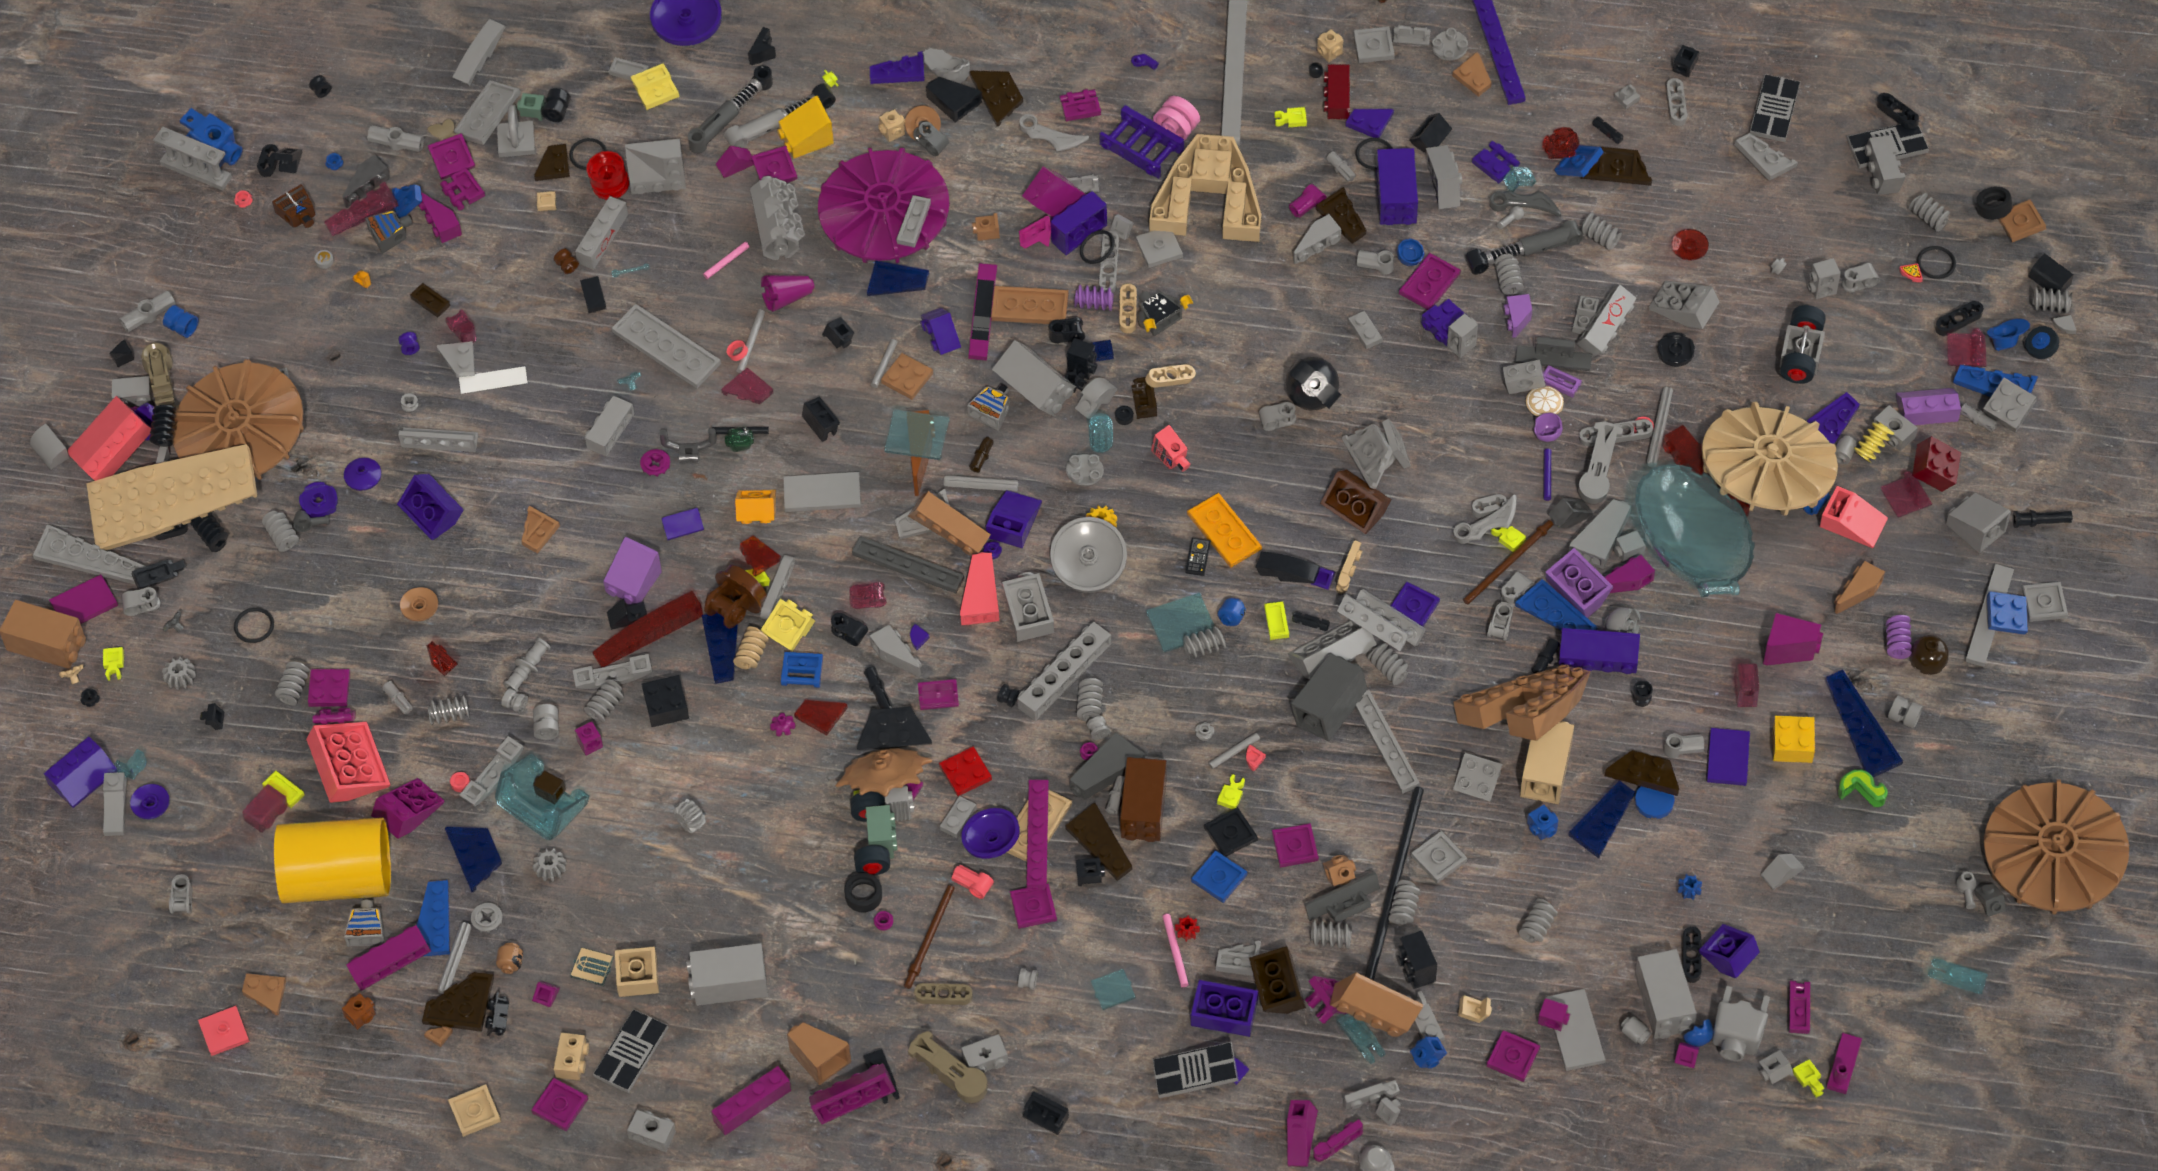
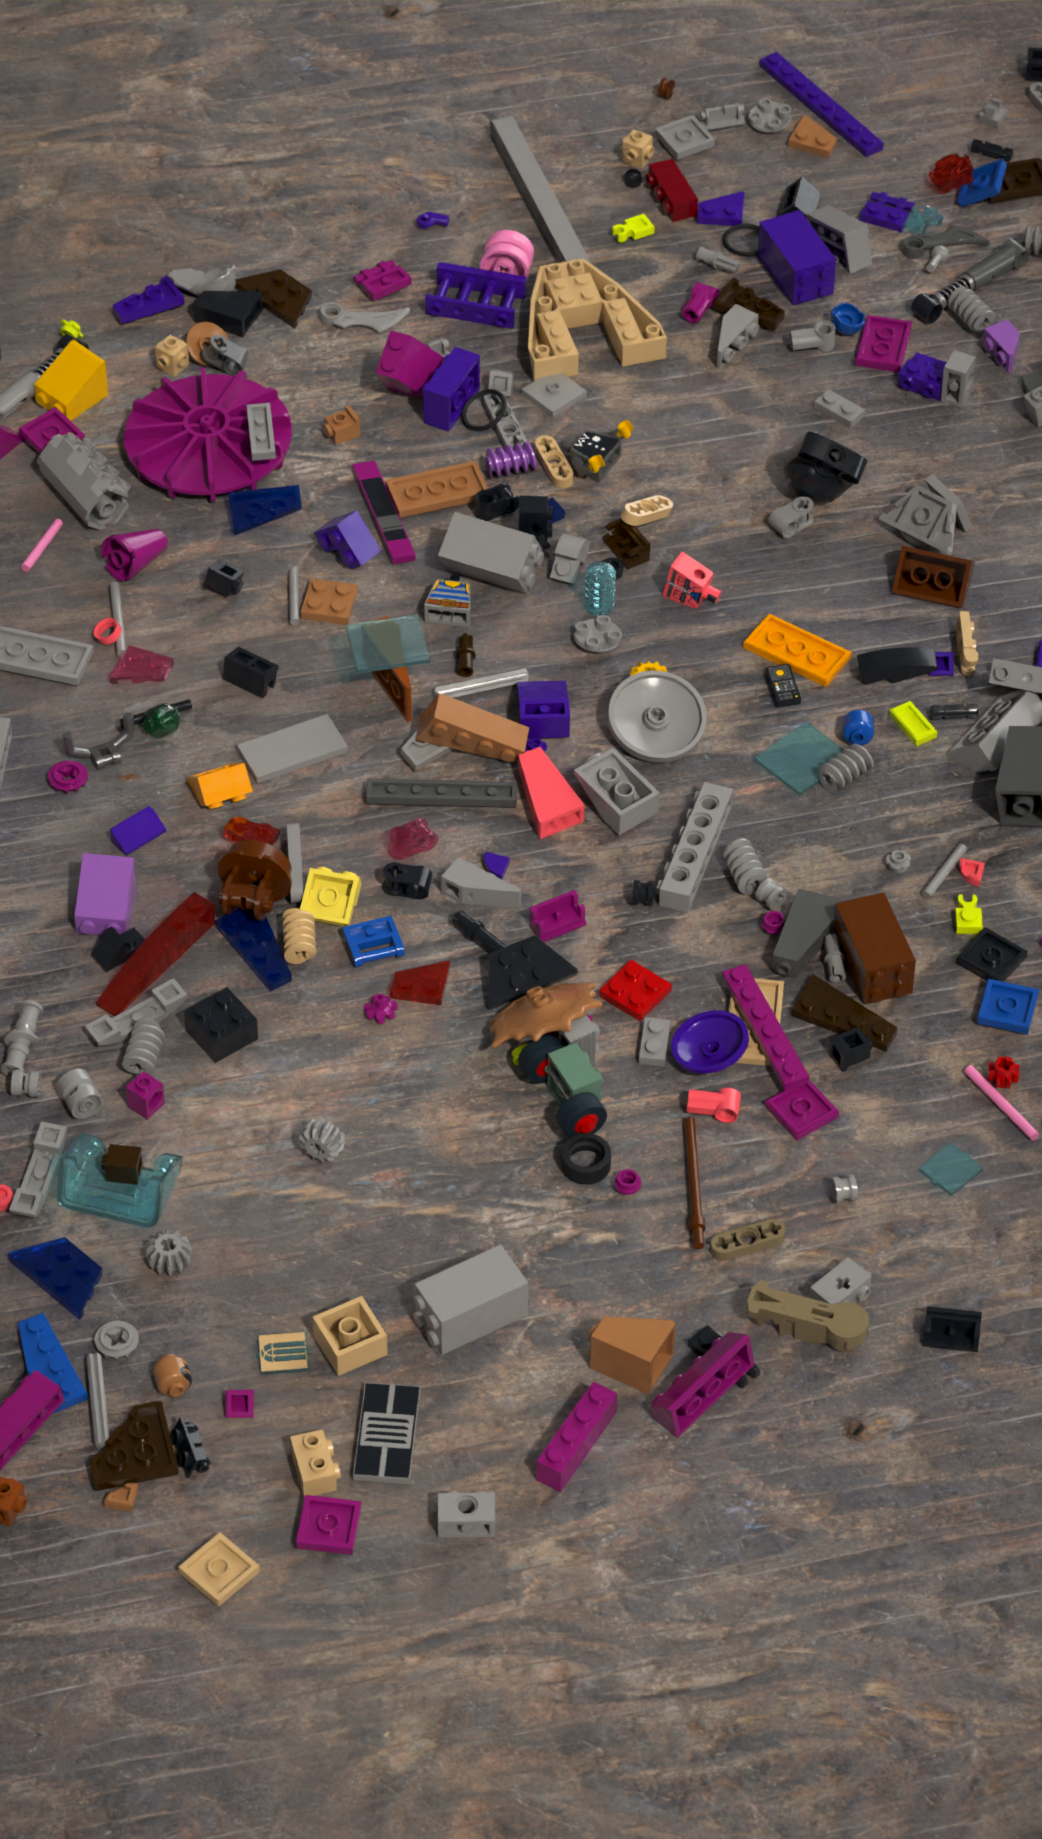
camera: 25 degrees left, 10 degrees down
(1036, 232) = (408, 410): dark pink slope -> none

